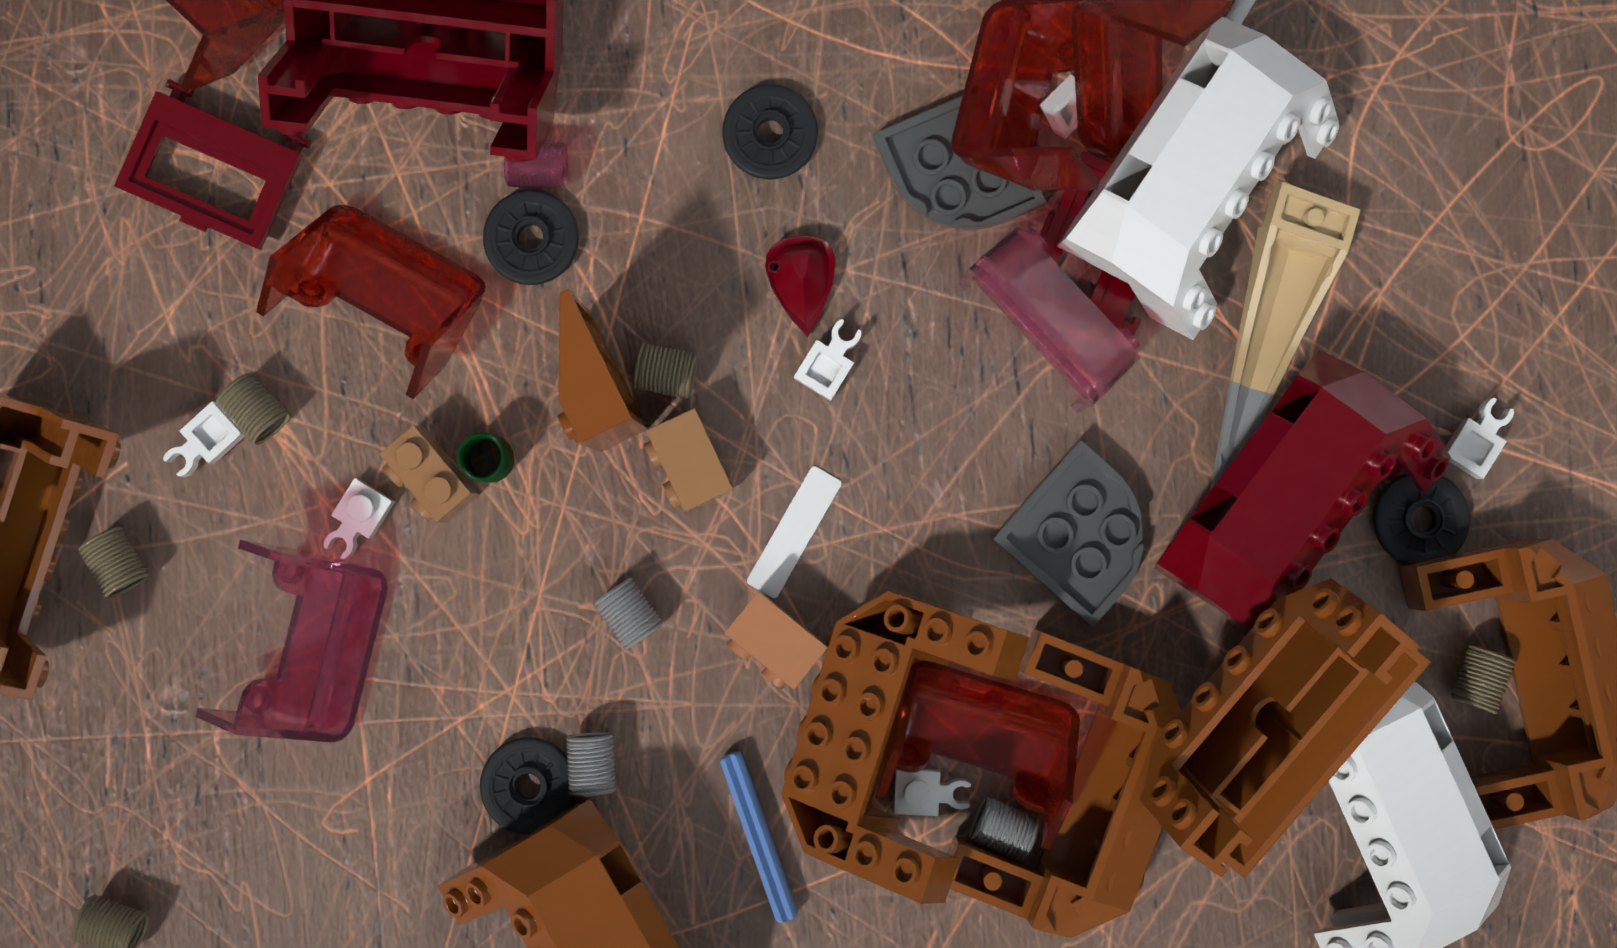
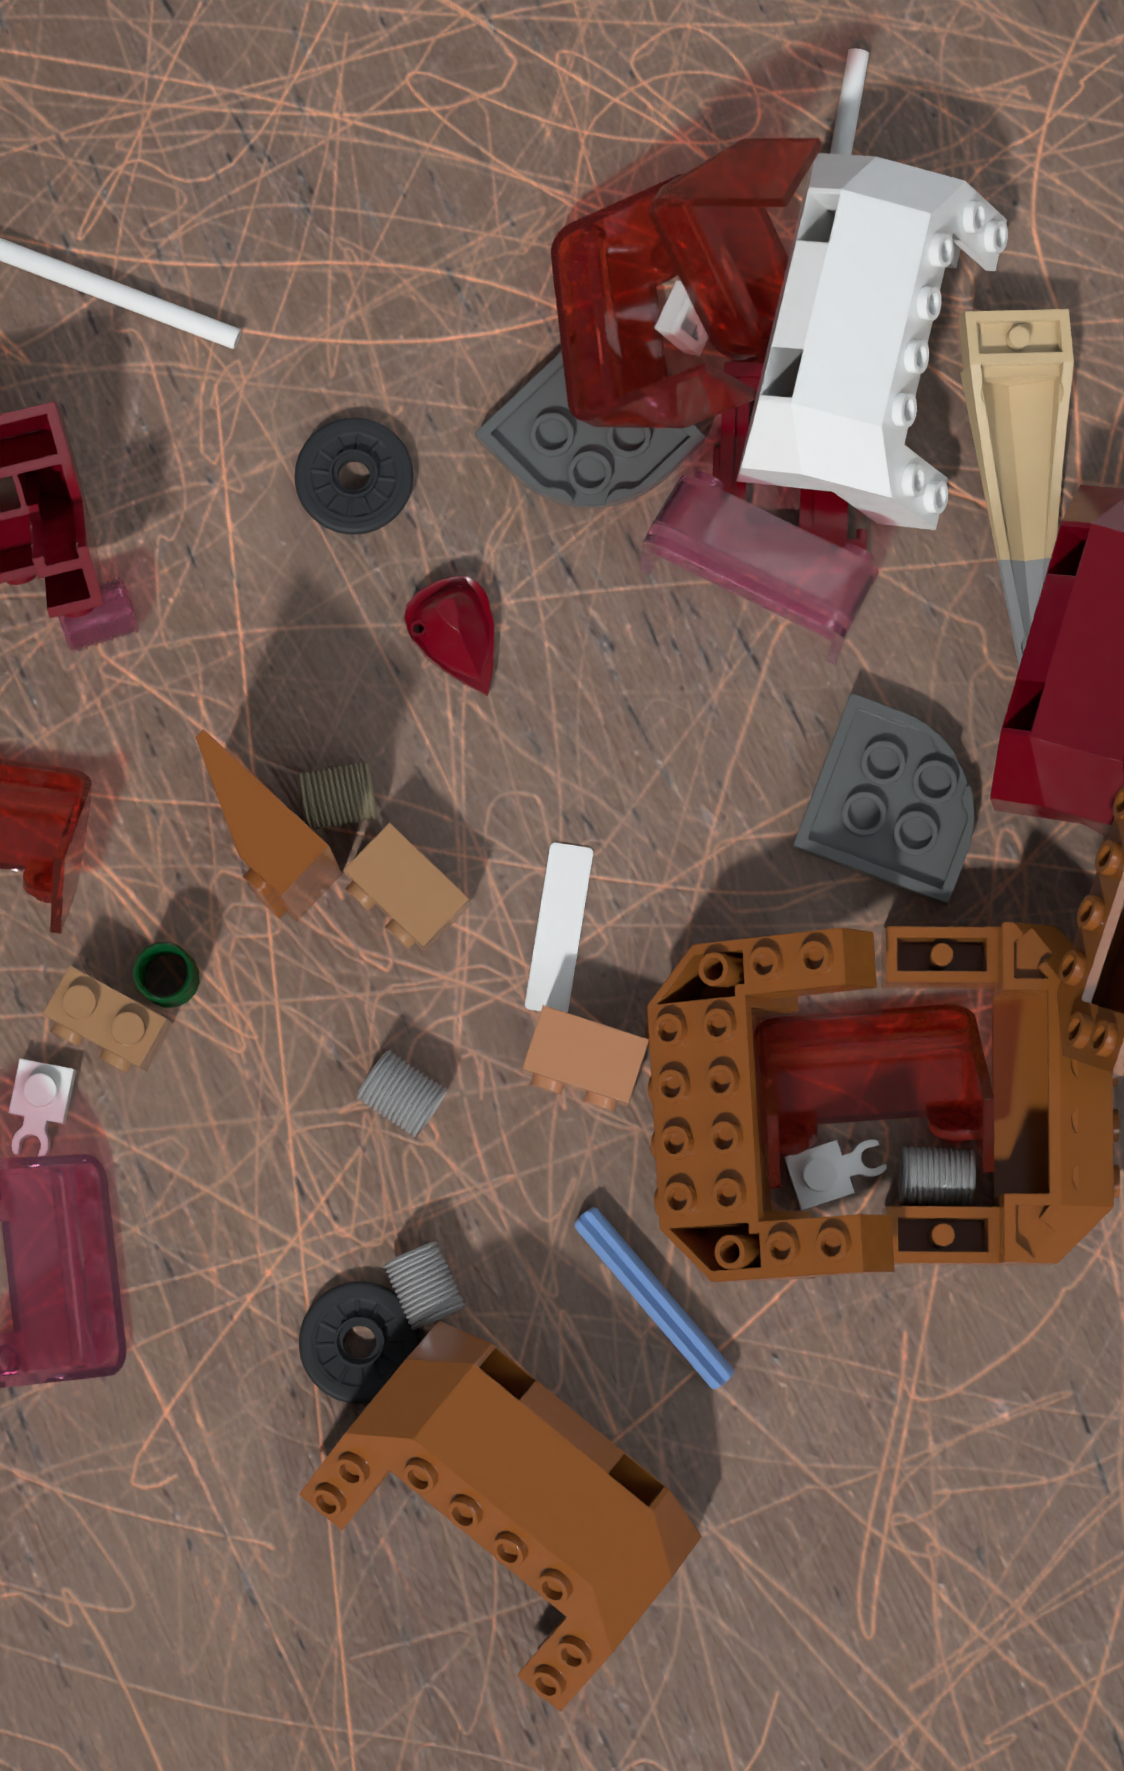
camera: 15 degrees left, 5 degrees down
(511, 217) = (129, 735): black wheel -> none
(826, 365) = (523, 720): white plate -> none

